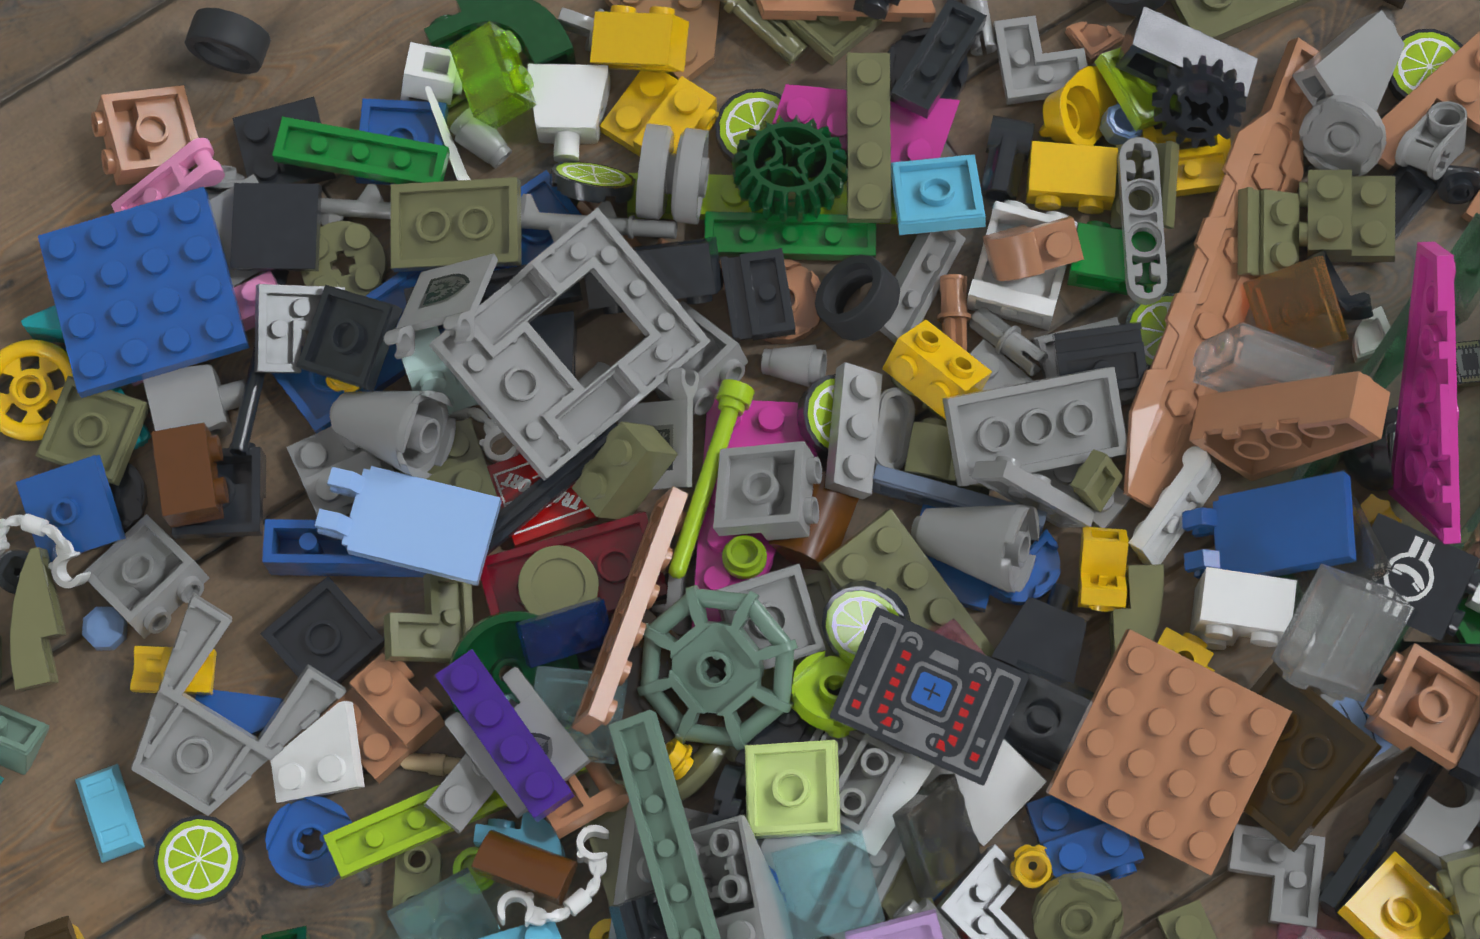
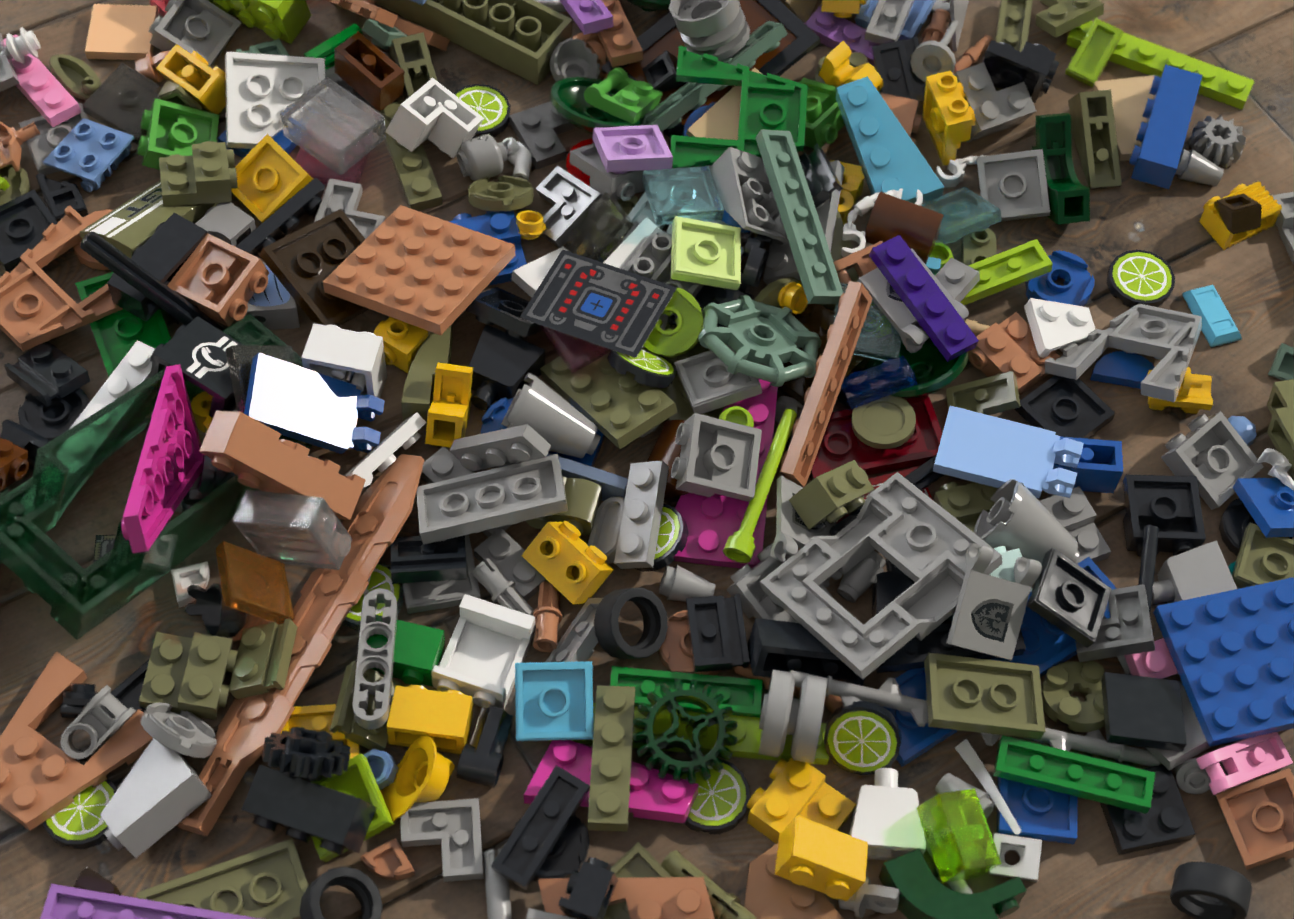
camera: 175 degrees right, 15 degrees down
(189, 474) = (1190, 500): reddish brown brick -> none
(1032, 250) = (482, 639): nougat brick -> none
(1096, 480) = (447, 463): olive plate -> none
(1341, 634) = (274, 314): clear brick -> none

